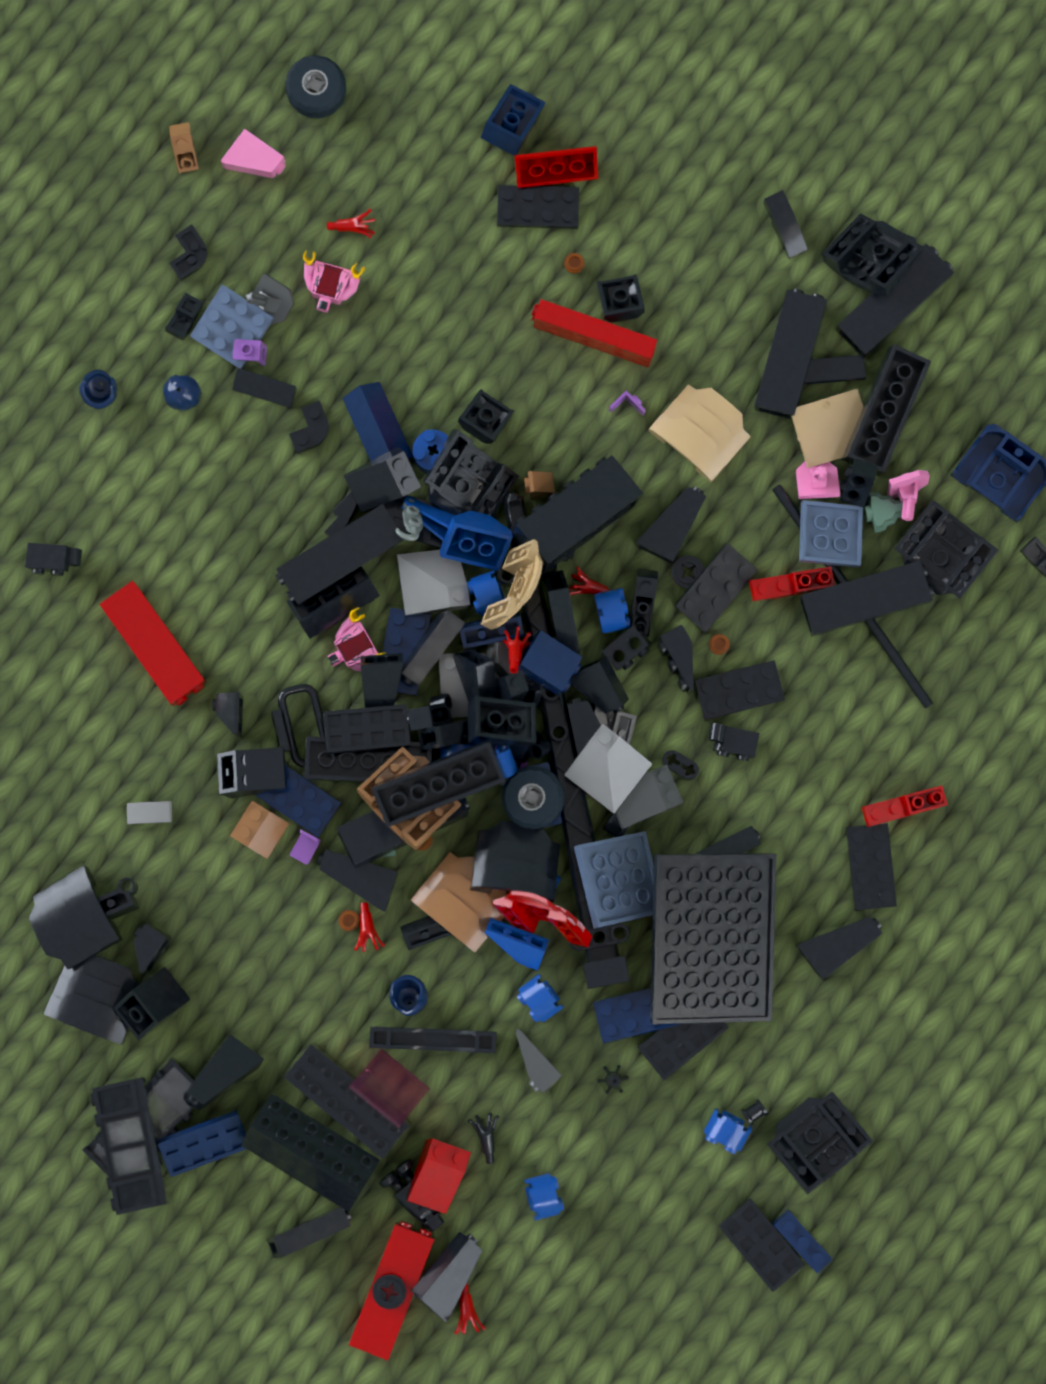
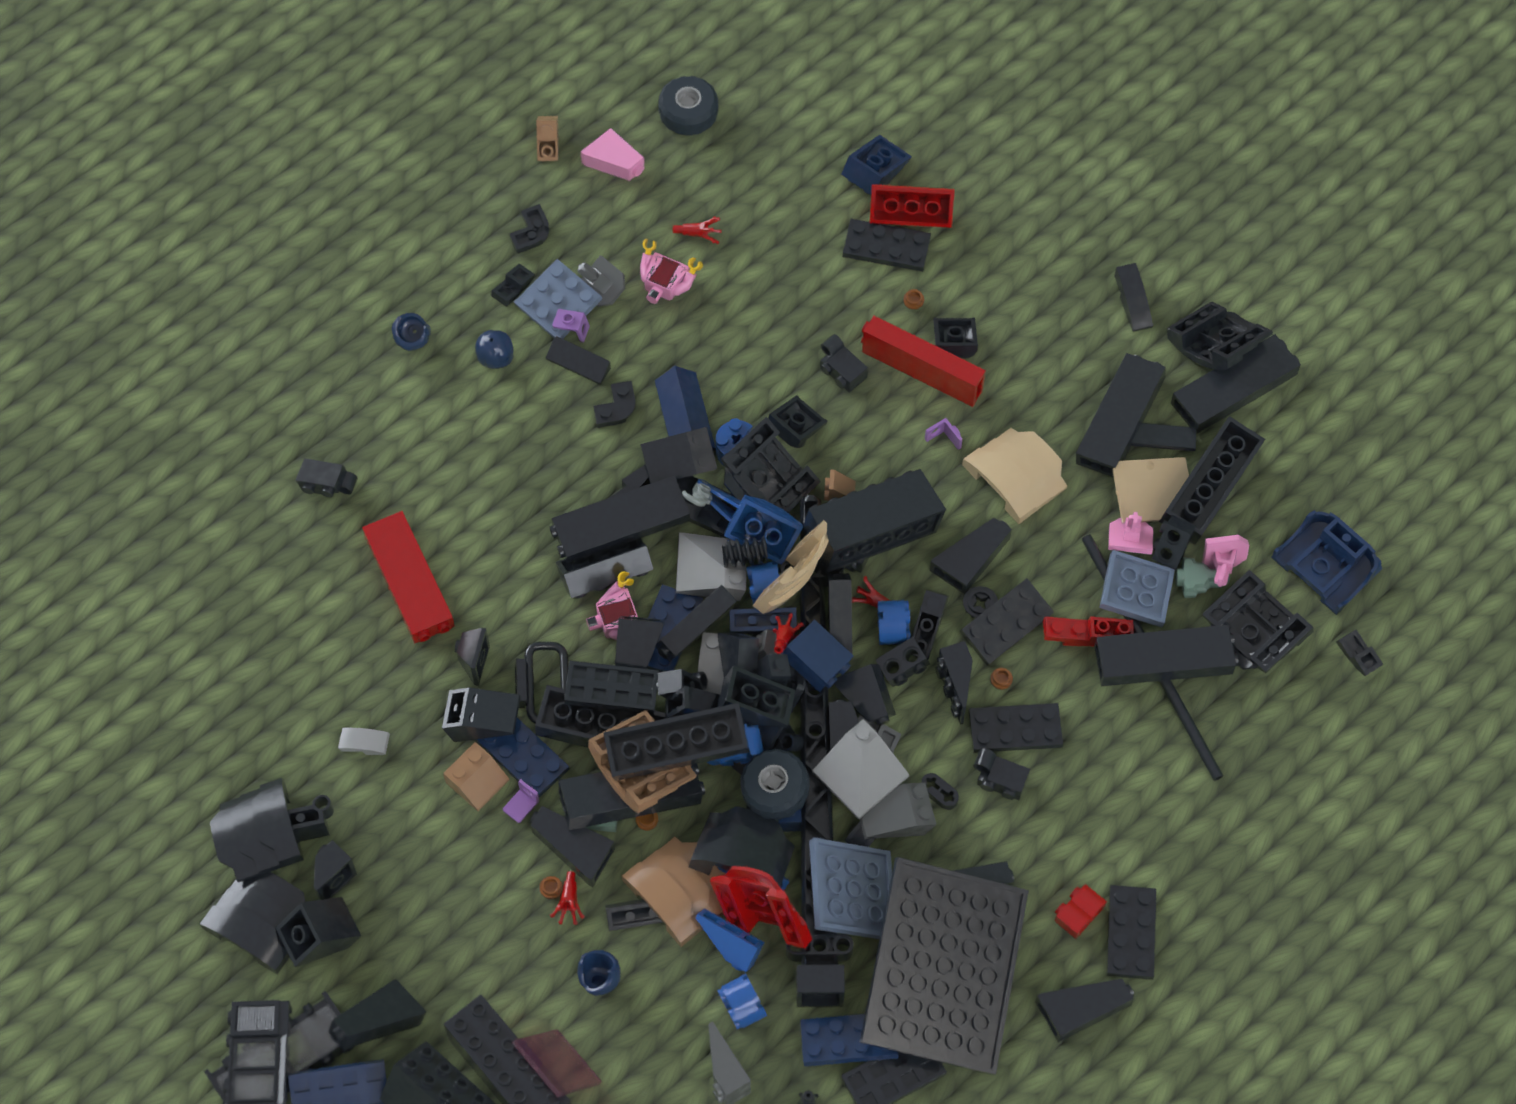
camera: 10 degrees right, 20 degrees down
(433, 1039) = (653, 1034): black arch -> none
(463, 571) = (744, 552): none -> black piece
(517, 348) = (842, 364): none -> black hinge
(823, 857) = (1079, 911): none -> red brick
(904, 806) = (1178, 874): red slope -> none

